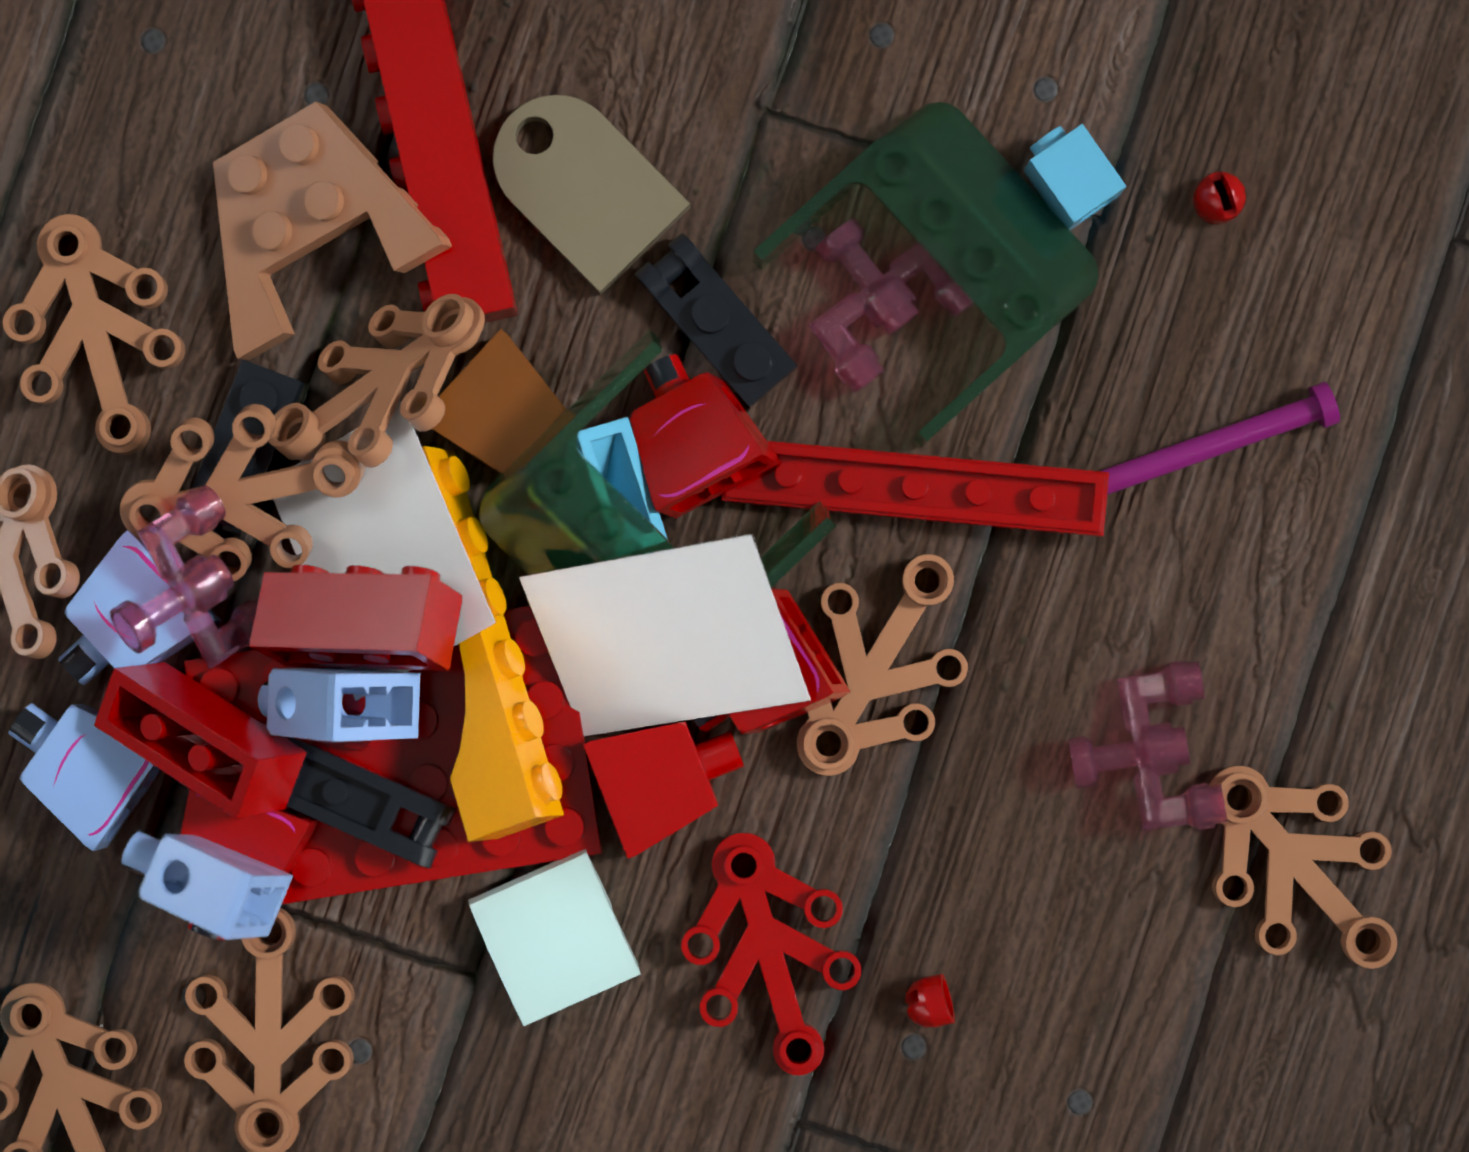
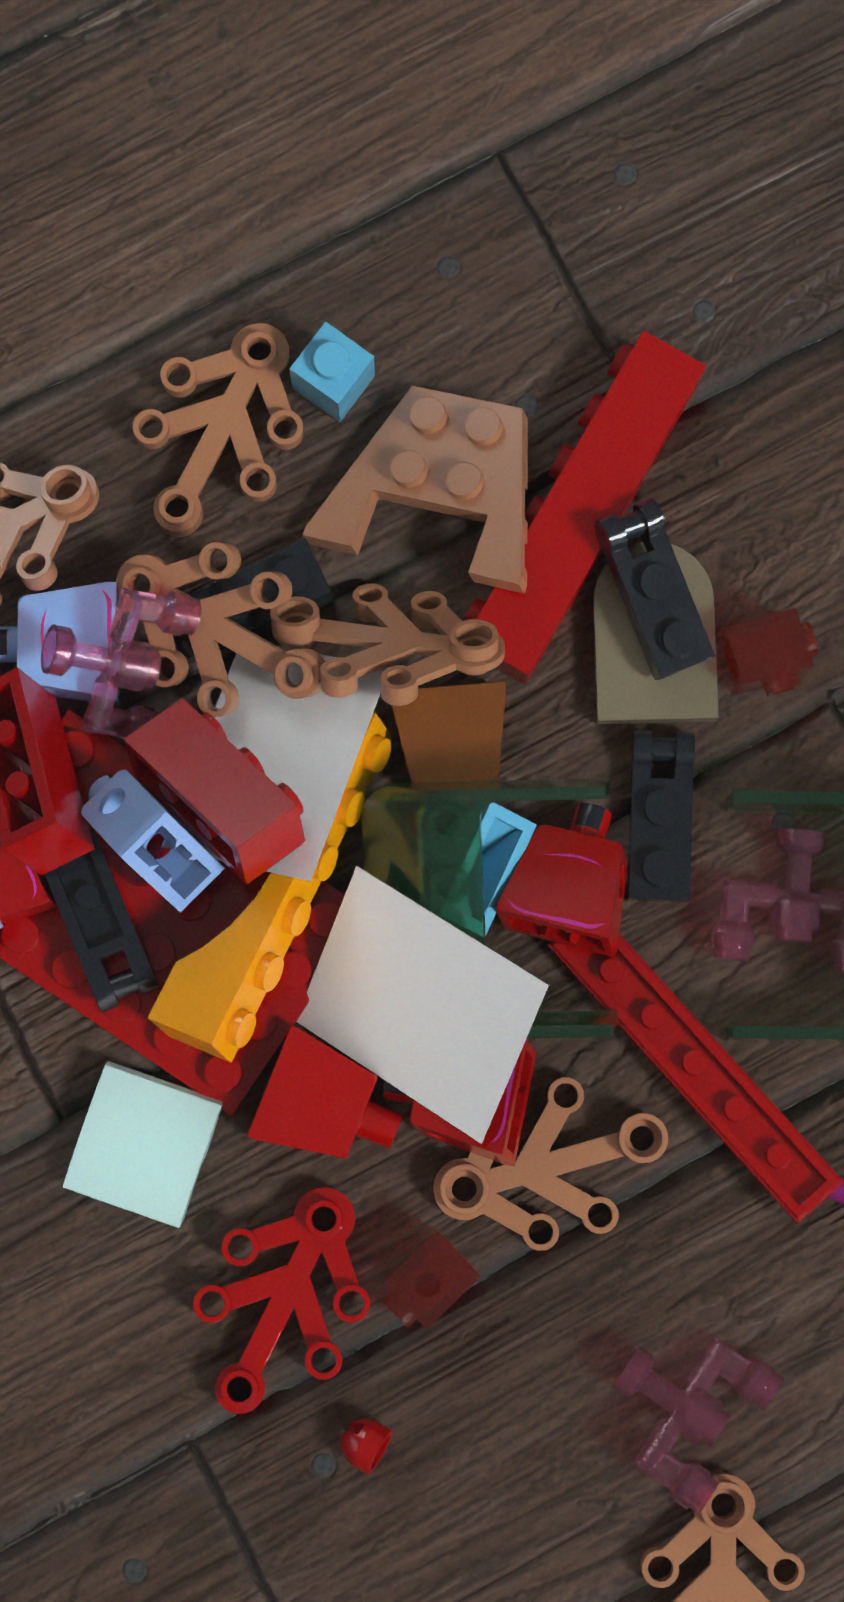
camera: 40 degrees right, 5 degrees down
(140, 208) = (332, 372): none -> medium azure brick
(550, 150) = (654, 590): none -> black plate
(682, 116) = (769, 652): none -> clear red brick
(866, 838) = (428, 1281): none -> clear red brick

